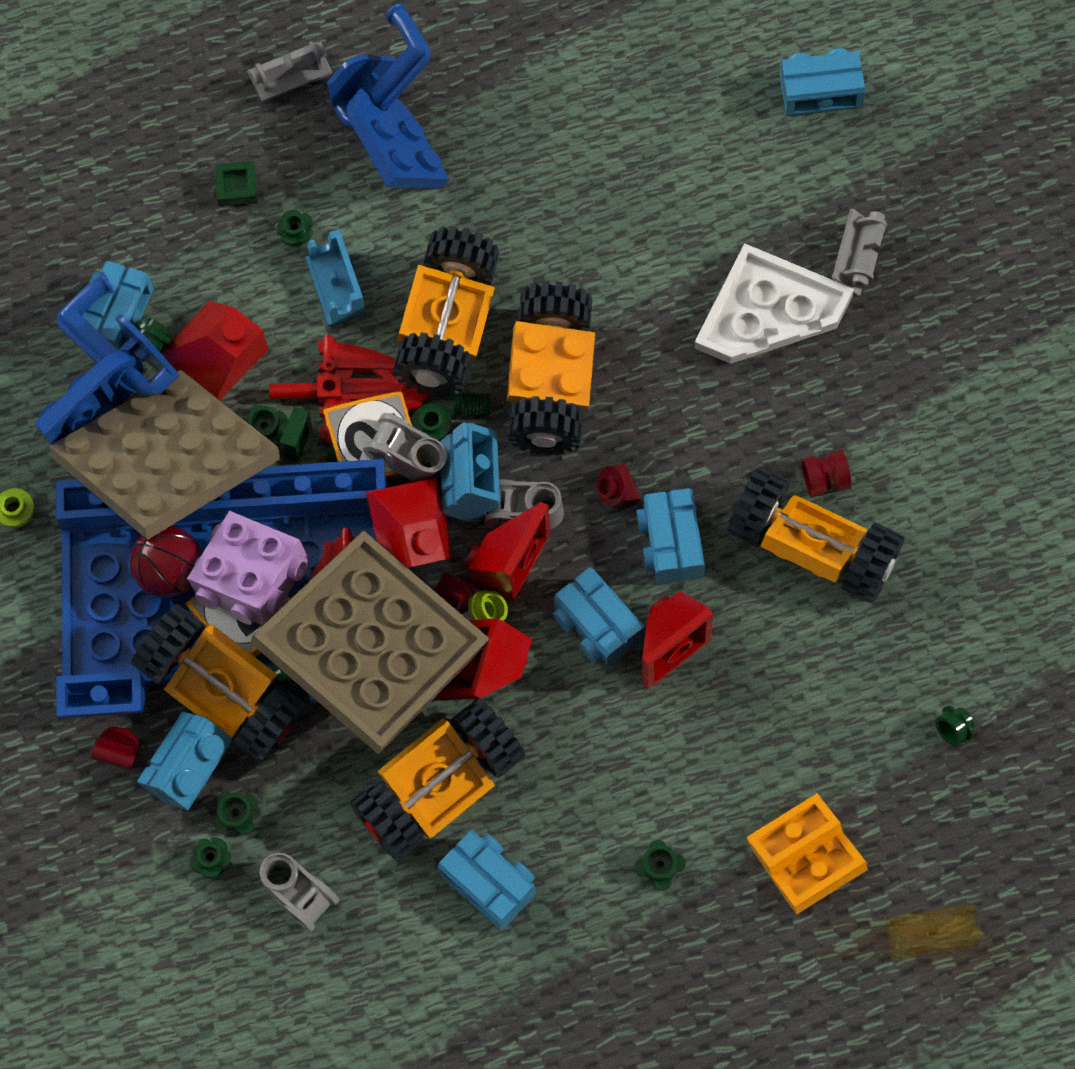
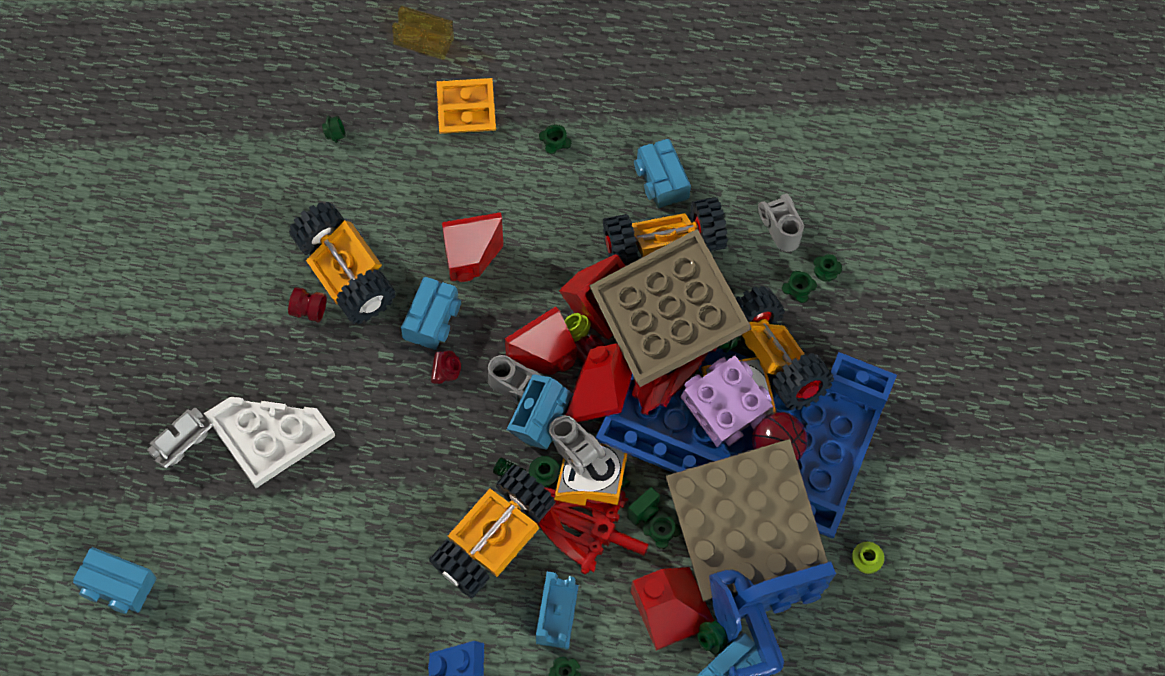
camera: 160 degrees left, 5 degrees down
(117, 747) = (863, 351): dark red plate -> none
(185, 760) = (820, 321): dark azure brick -> none
(550, 368) = (442, 456): plate -> none
(597, 618) = (508, 286): dark azure brick -> none

